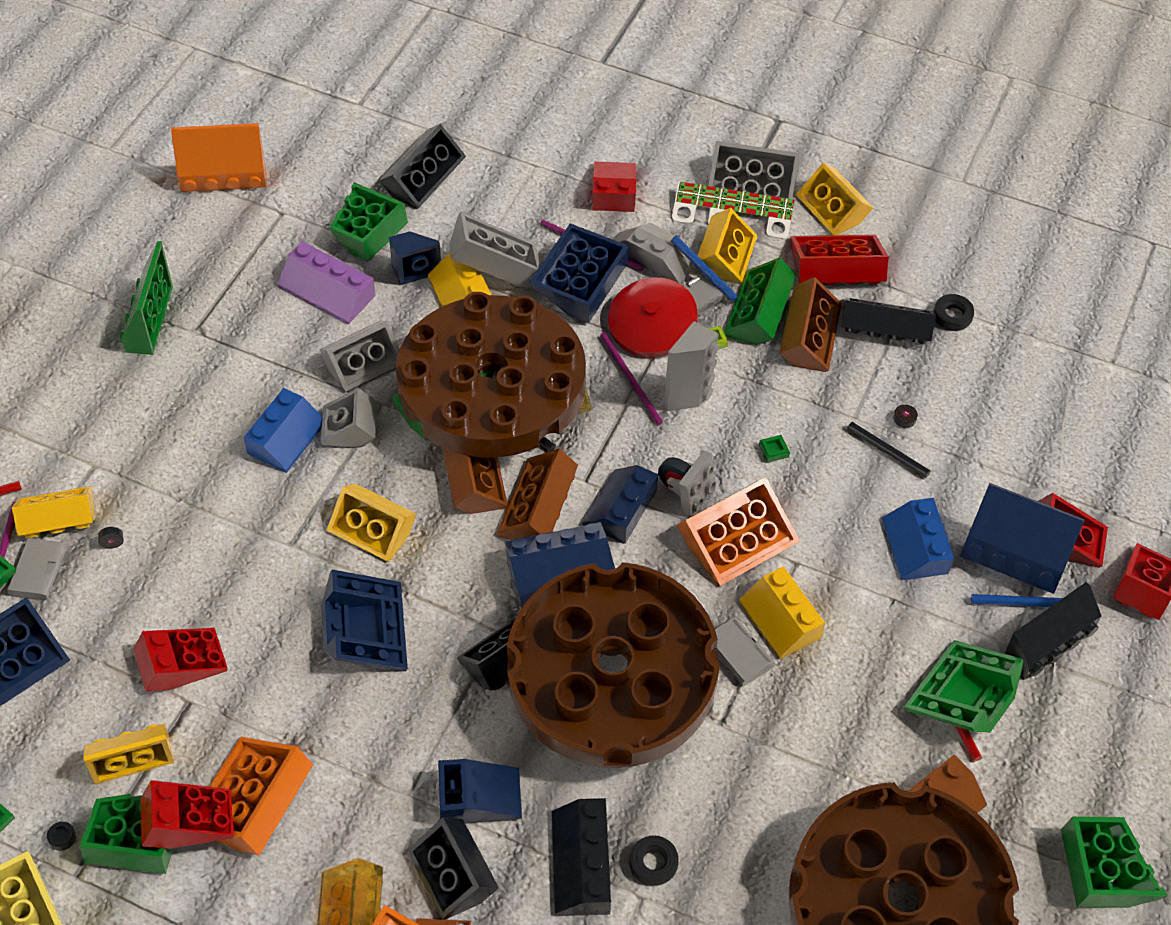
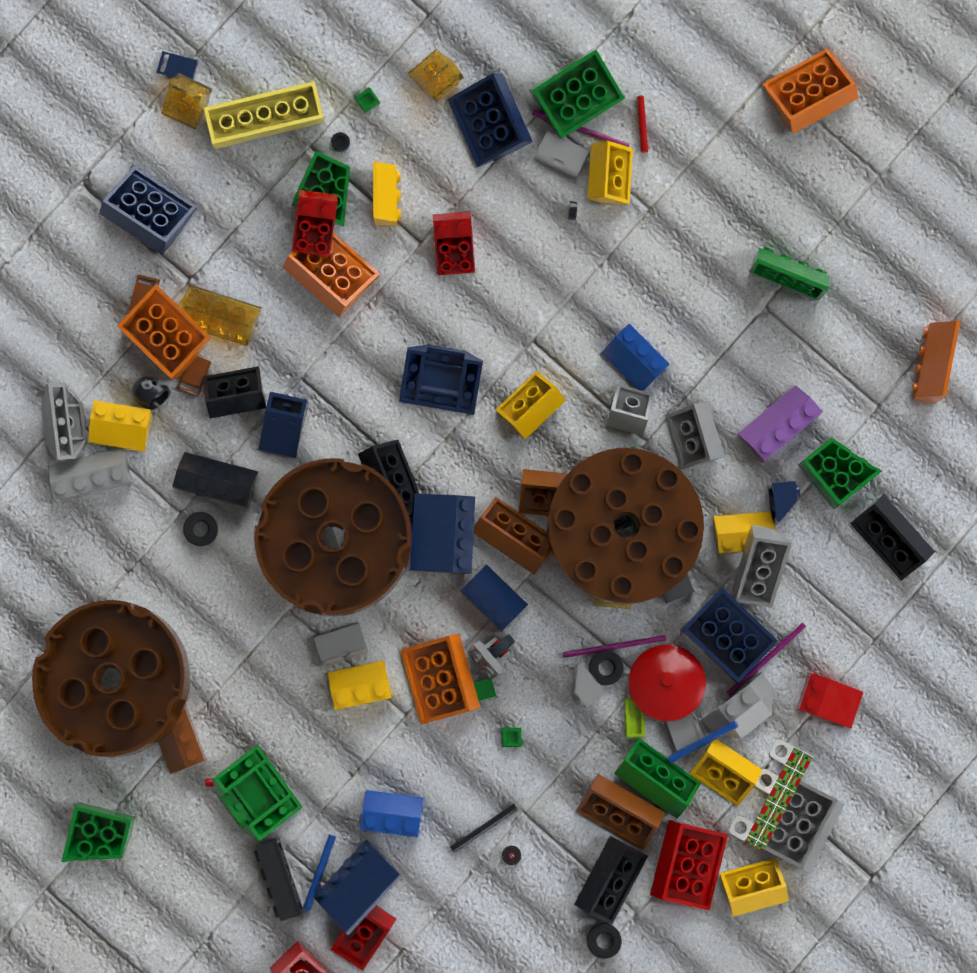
camera: 105 degrees right, 30 degrees up
(646, 370) = (614, 659): none -> black tyre
(729, 485) = (484, 689): none -> green tile

